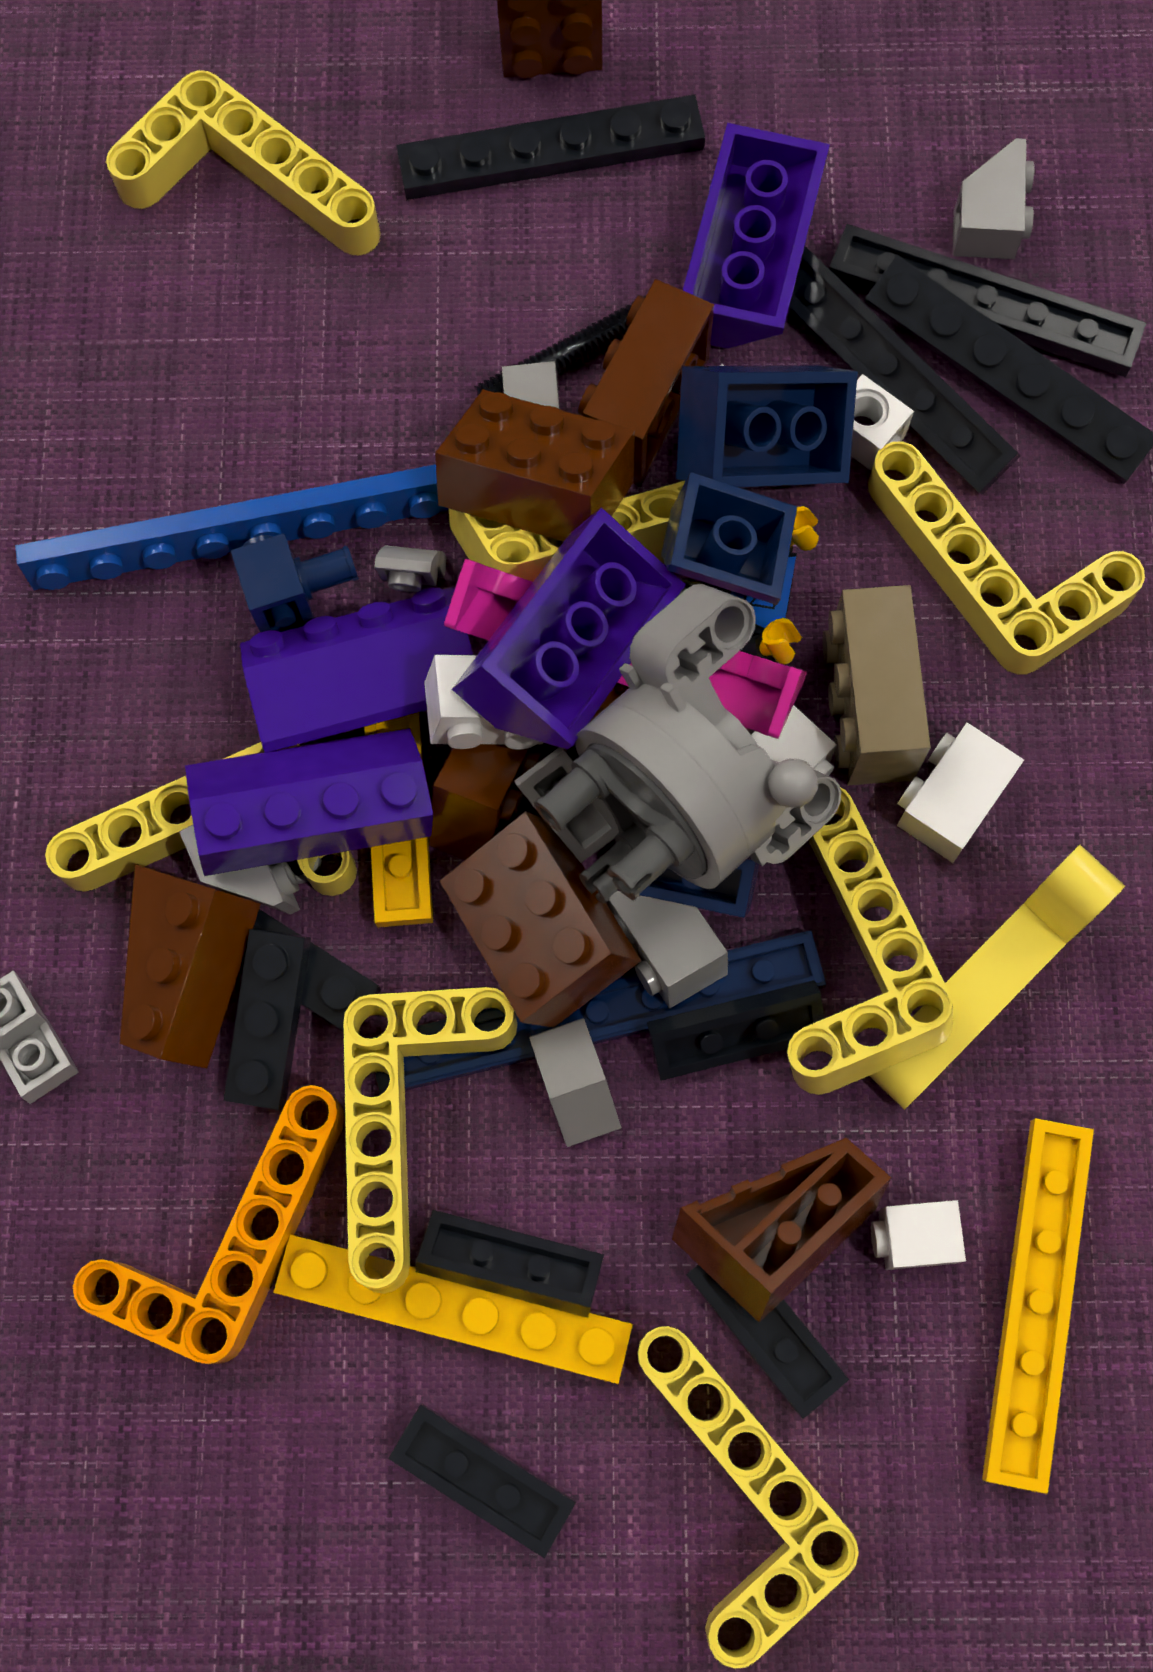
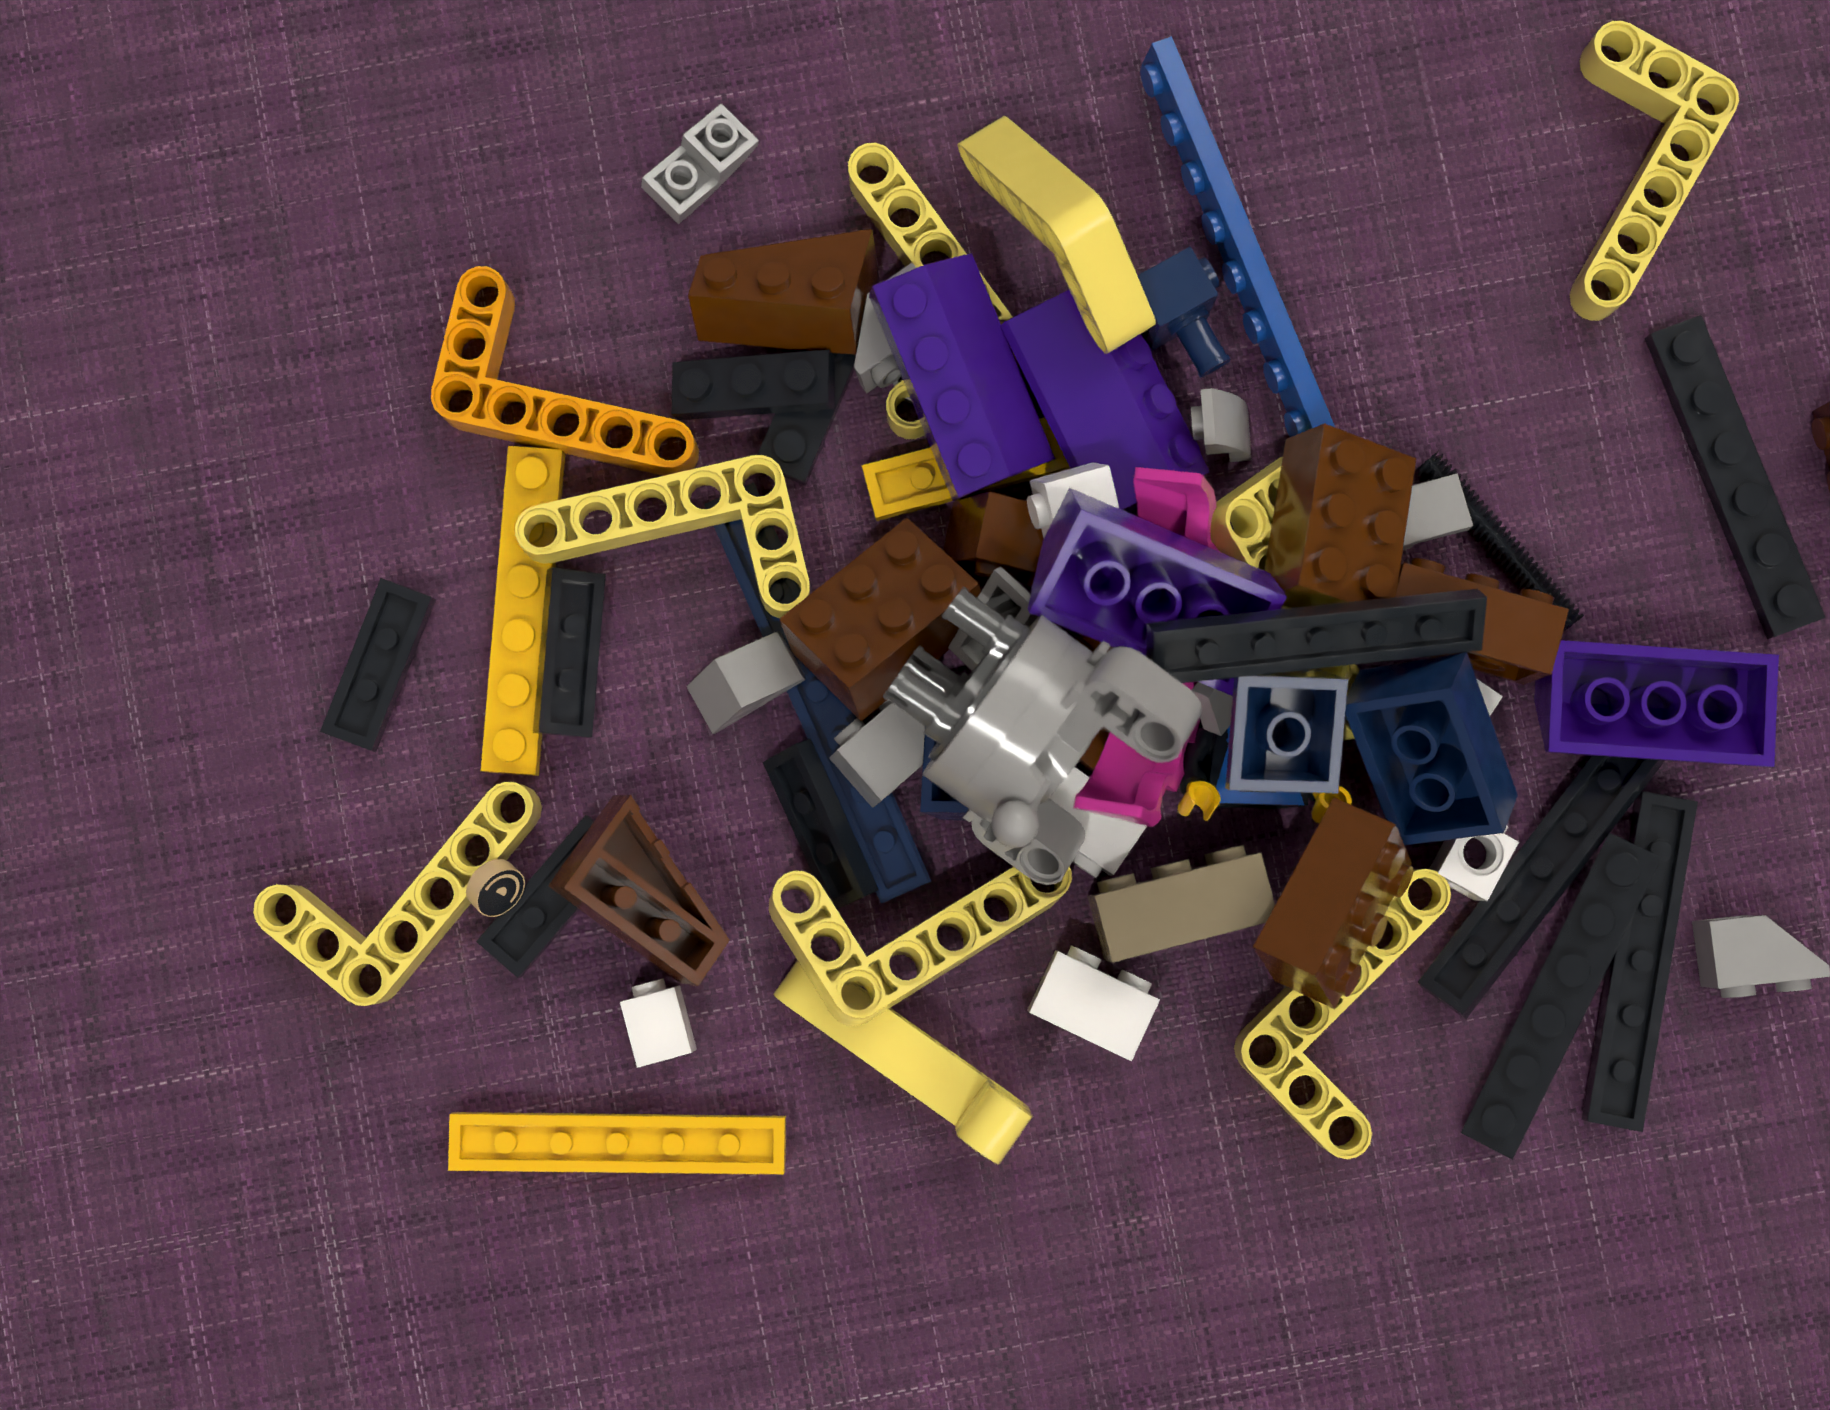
camera: 80 degrees right, 10 degrees up
(168, 657) = (1068, 222): none -> light yellow beam
(644, 486) = (1318, 636): none -> black plate
(750, 1384) = (495, 887): none -> tile
(902, 531) = (1335, 904): none -> reddish brown brick

